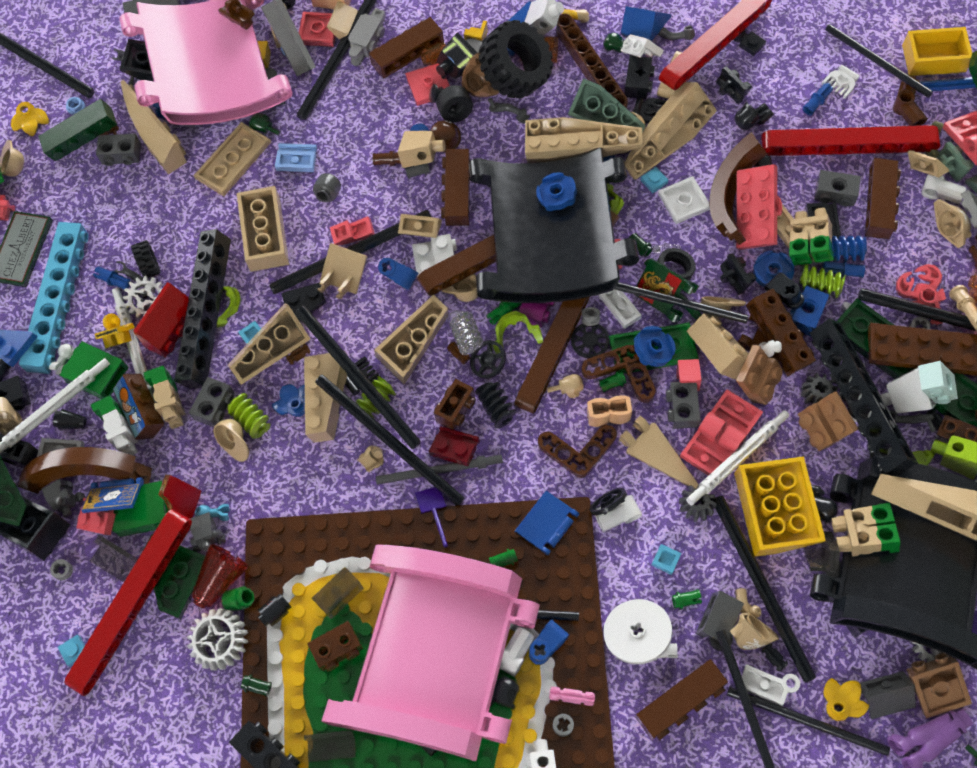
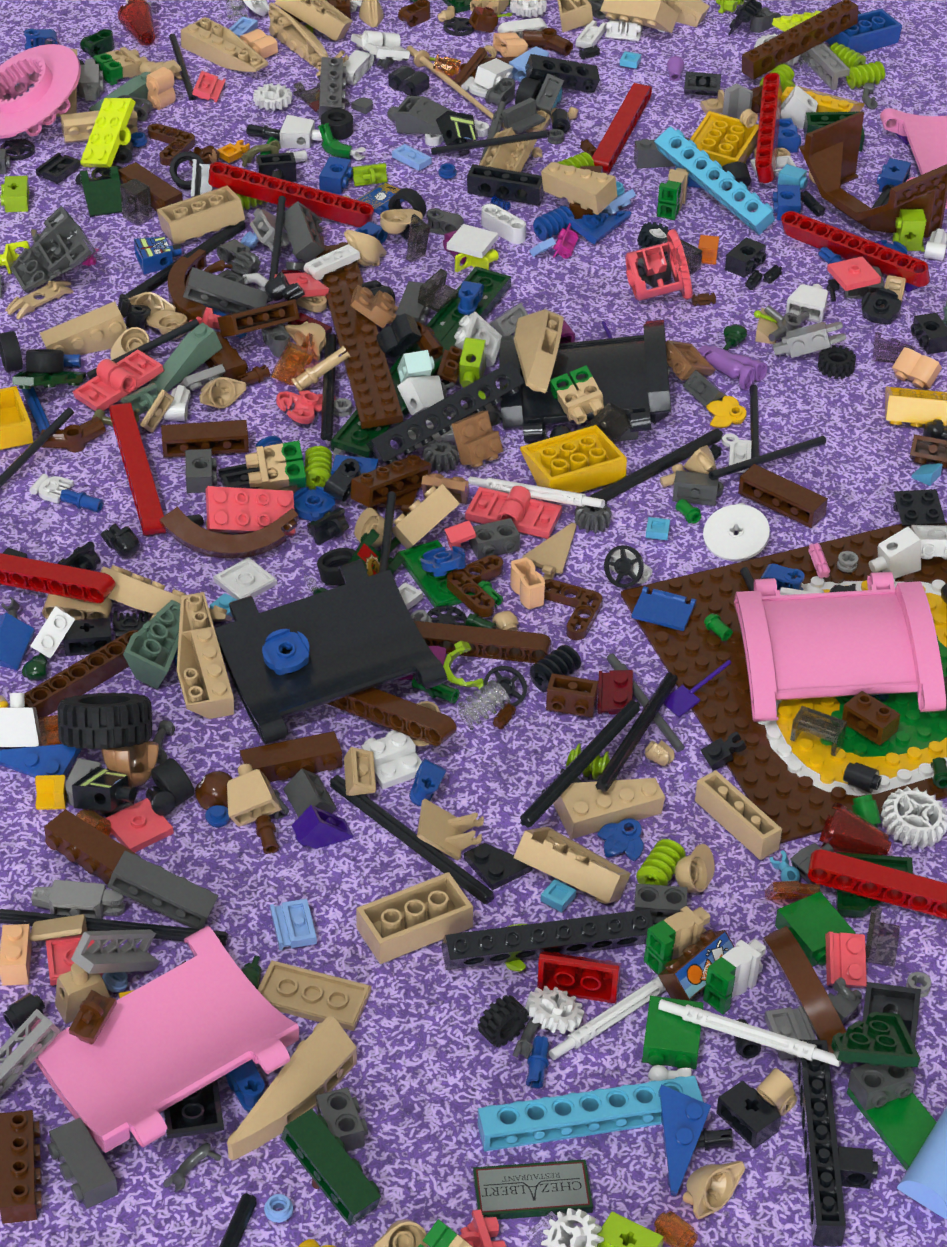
camera: 115 degrees left, 25 degrees down
(112, 495) = (820, 934): piece -> none
(115, 333) = (615, 1019): yellow hips -> none
(273, 490) = (738, 815): none -> tan brick
(326, 187) = (330, 878): dark grey head -> none
(344, 76) = (162, 890): none -> dark grey brick
(351, 232) = (381, 844): coral slope -> none
(354, 508) = (721, 752): none -> black plate
(377, 193) = (320, 828): none -> dark purple slope
(409, 342) = (506, 747): tan wedge -> none
(417, 195) = (308, 790): none -> dark grey panel
(574, 363) = (475, 621): none -> dark green pin
(771, 347) = (415, 479): white arm -> none

